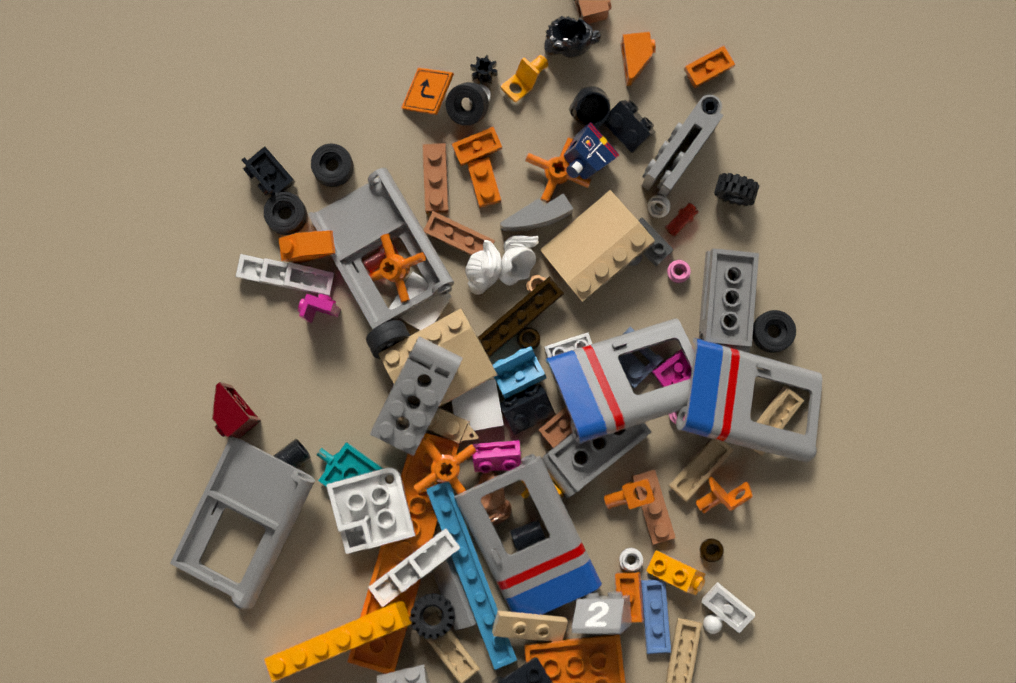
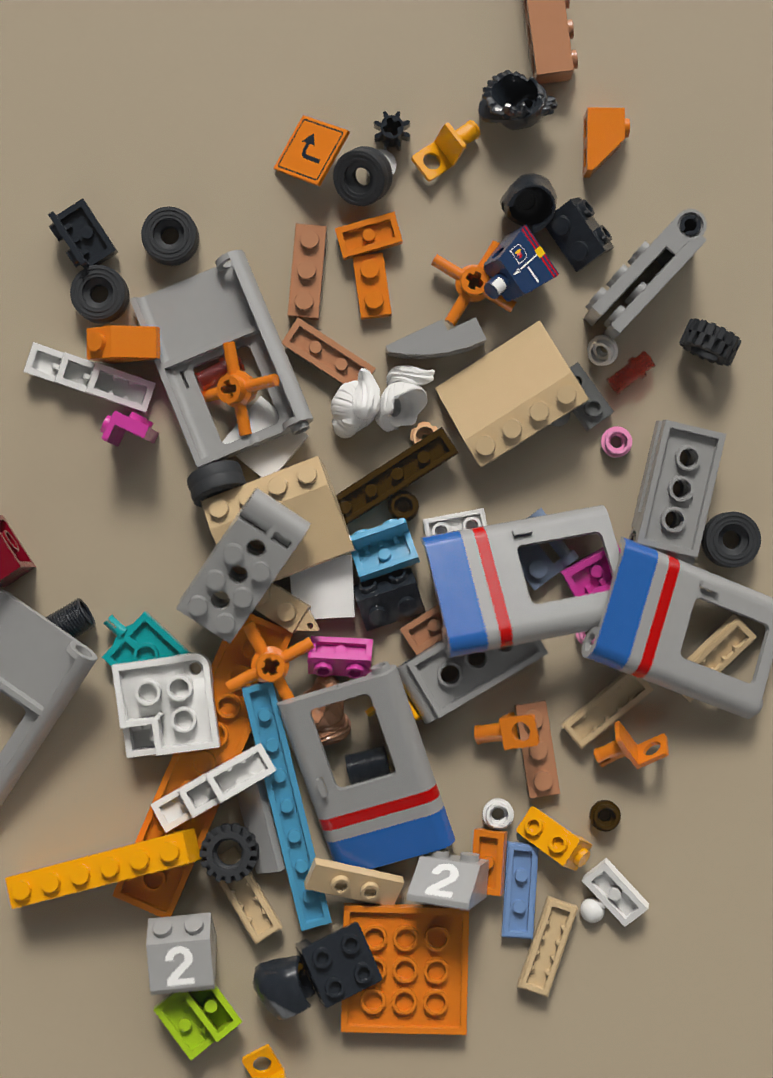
camera: 10 degrees right, 5 degrees up
(709, 66) = (699, 166): orange plate -> none

